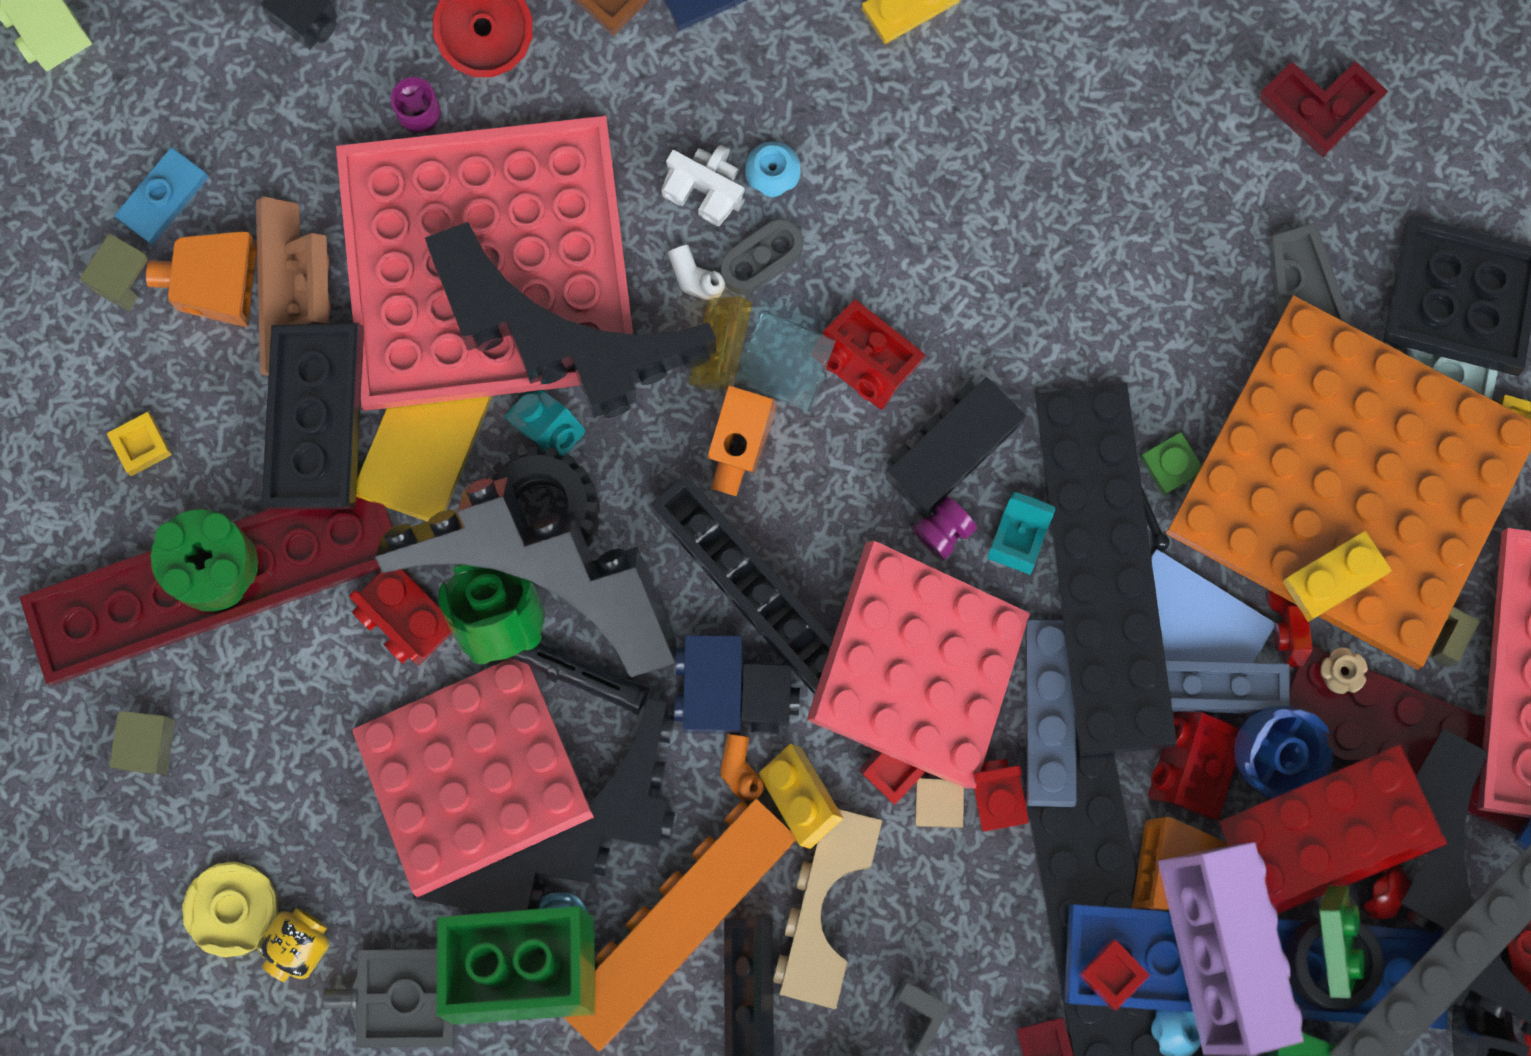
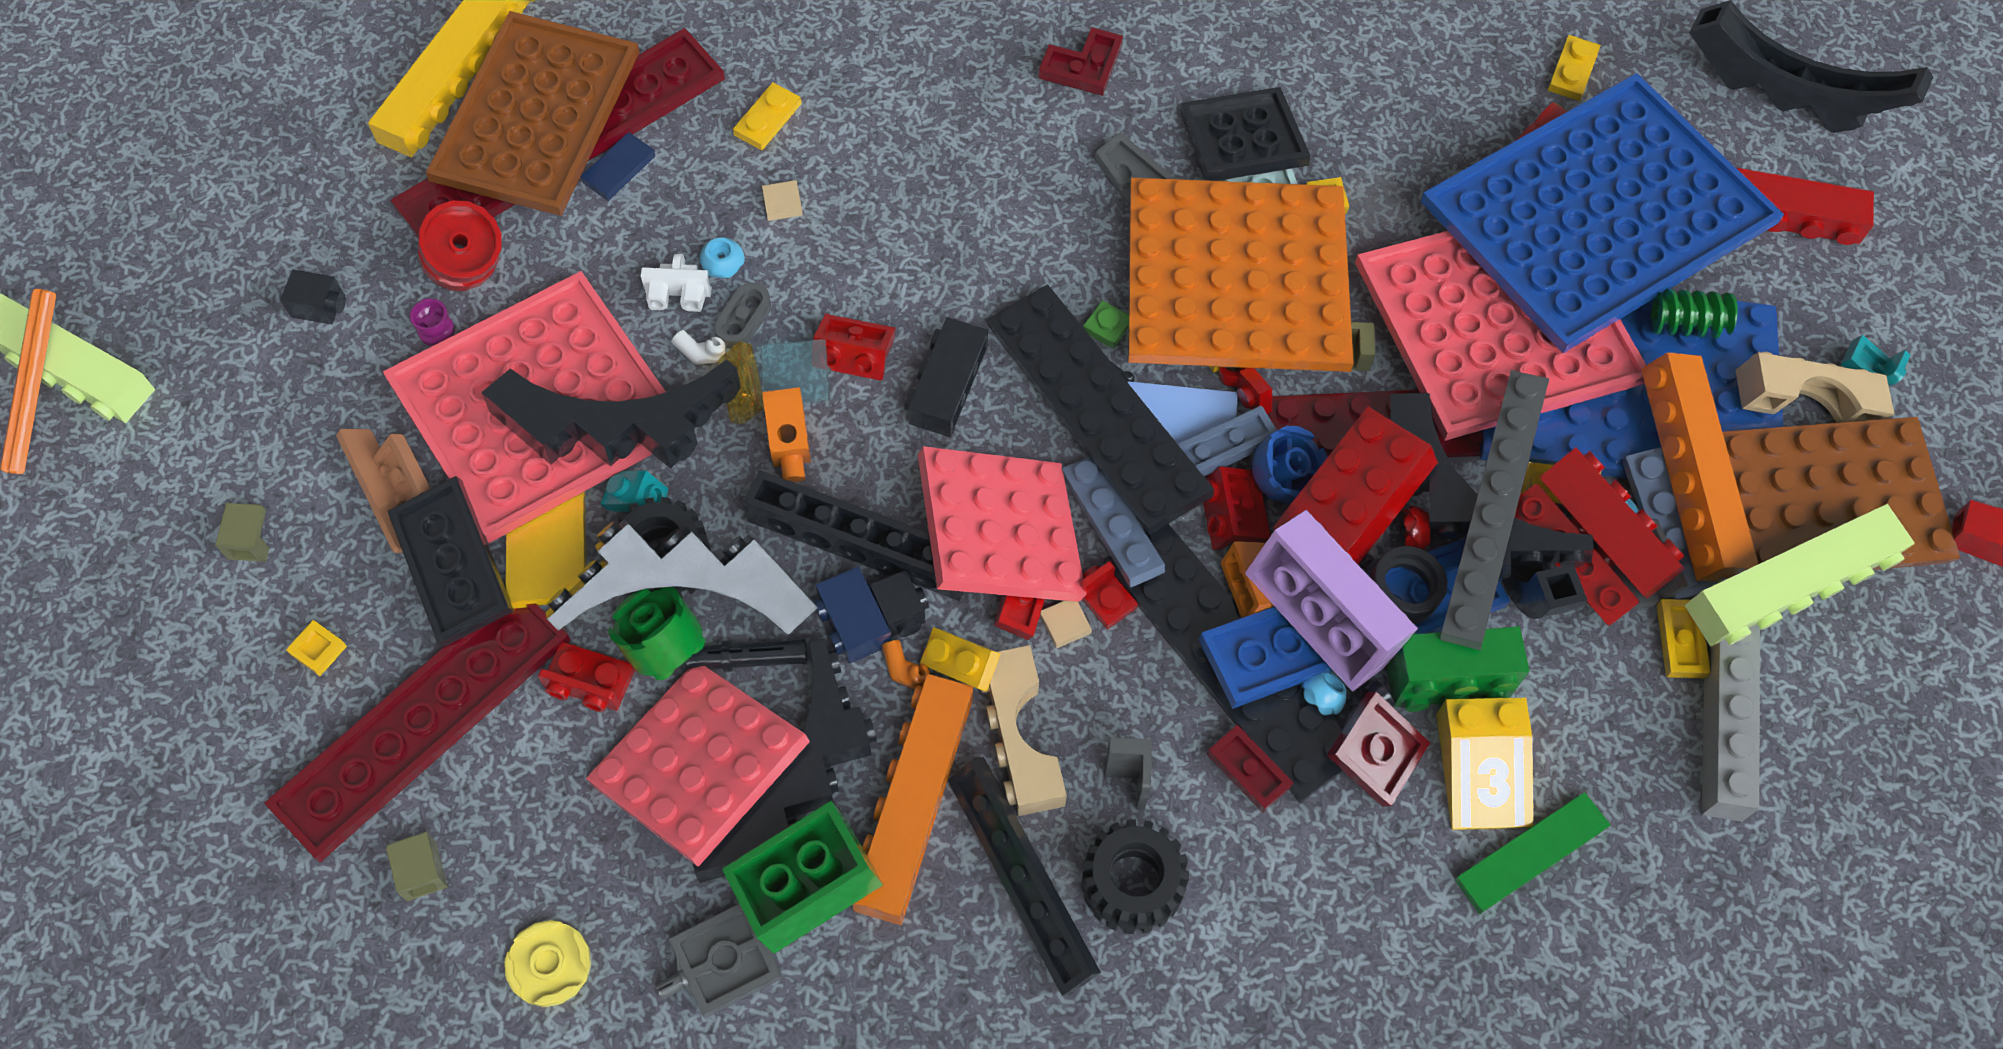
camera: 30 degrees left, 15 degrees down
(161, 196) = (257, 468): dark azure plate -> none
(181, 546) = (404, 678): green brick -> none
(209, 276) = (321, 504): orange torso -> none
(293, 945) = (613, 962): yellow head -> none
(875, 125) = (782, 200): none -> tan tile
(944, 528) = (970, 431): magenta wheel -> none
(1021, 532) = (1026, 410): teal bracket -> none
(1113, 974) = (1257, 663): red plate -> none
(1336, 576) = (1261, 329): yellow plate -> none
(1339, 927) = (1396, 544): green plate -> none
(1341, 683) = (1298, 405): tan plate -> none

